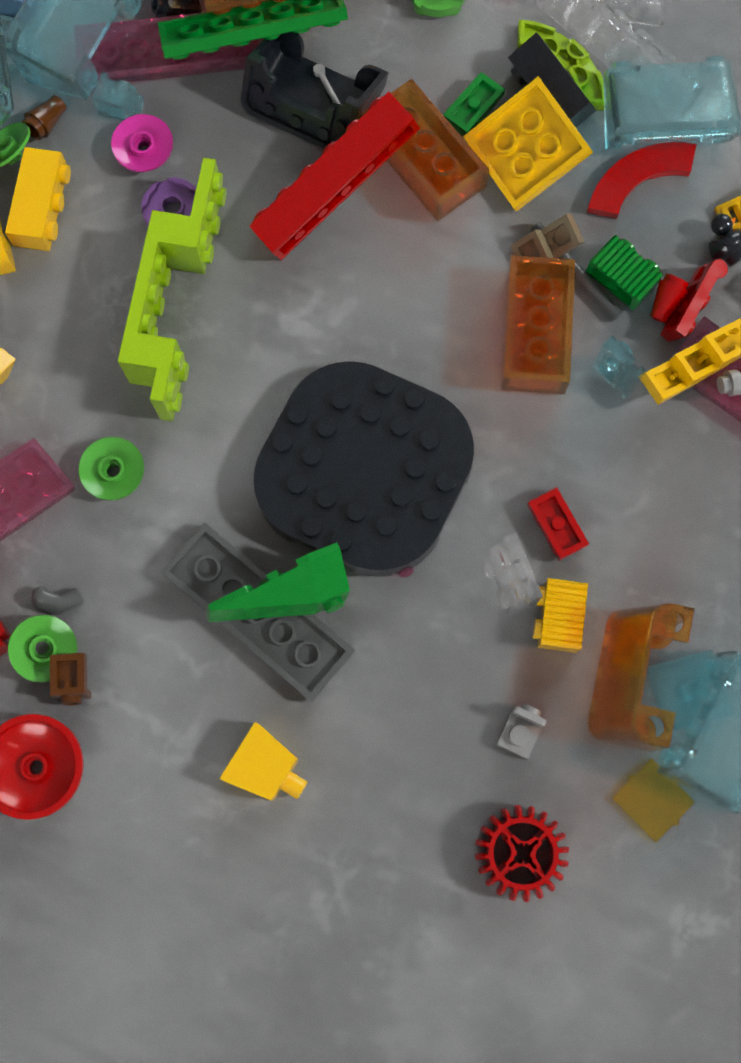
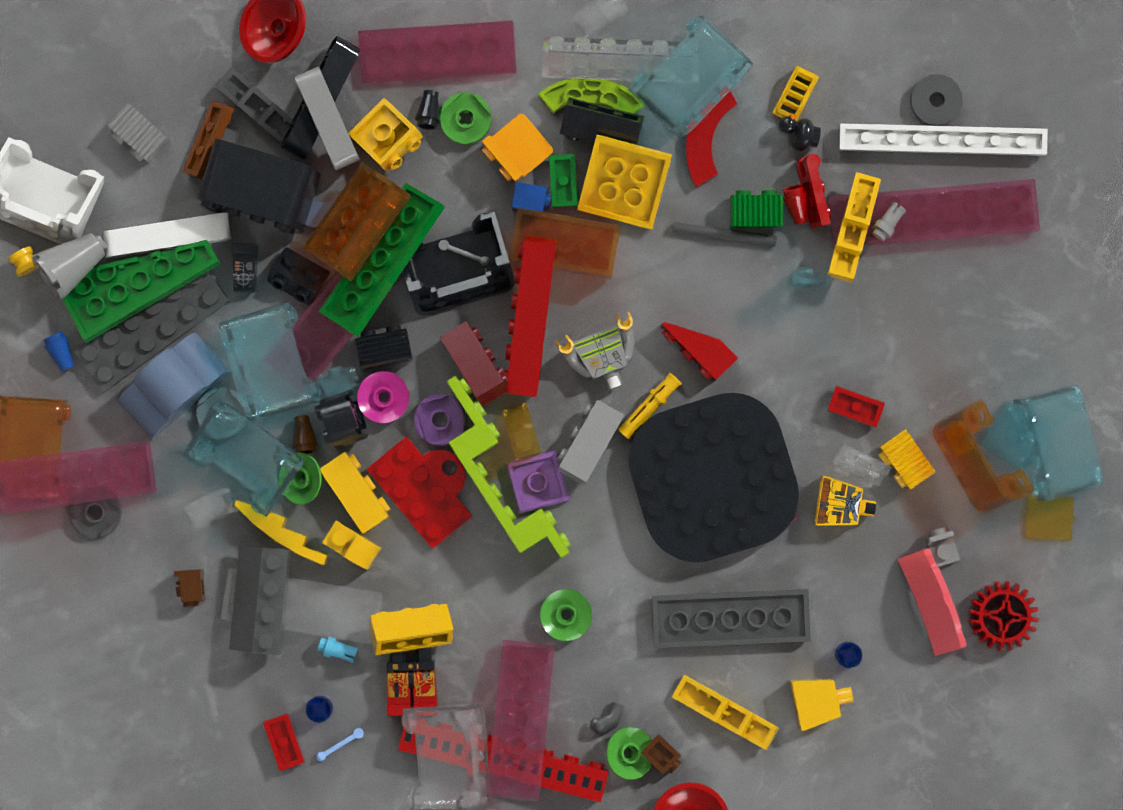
camera: 40 degrees left, 10 degrees up
(85, 125) = (341, 419): none -> black brick
(97, 252) = (423, 489): none -> red plate
(168, 696) = (725, 712): none -> yellow slope
(183, 105) = (383, 348): none -> black brick
(206, 333) = (537, 482): none -> medium lavender tile
(229, 278) = (521, 431): none -> clear yellow slope
(246, 177) = (475, 363): none -> dark red brick
(282, 335) = (589, 441): none -> light grey brick
(307, 589) = (752, 580): green wedge -> none
(331, 746) = (852, 656): none -> clear blue wheel
(368, 270) = (602, 352): none -> light grey torso
(374, 354) = (649, 406): none -> yellow pin
(434, 87) = (530, 197): none -> blue brick
(457, 46) = (517, 148): none -> light orange bracket
(460, 599) = (841, 503): none -> torso
(463, 774) = (933, 601): none -> coral windscreen
(465, 351) = (706, 351): none -> red slope
(538, 325) = (736, 295): clear orange brick -> none
(550, 241) = (693, 235): dark tan slope -> none

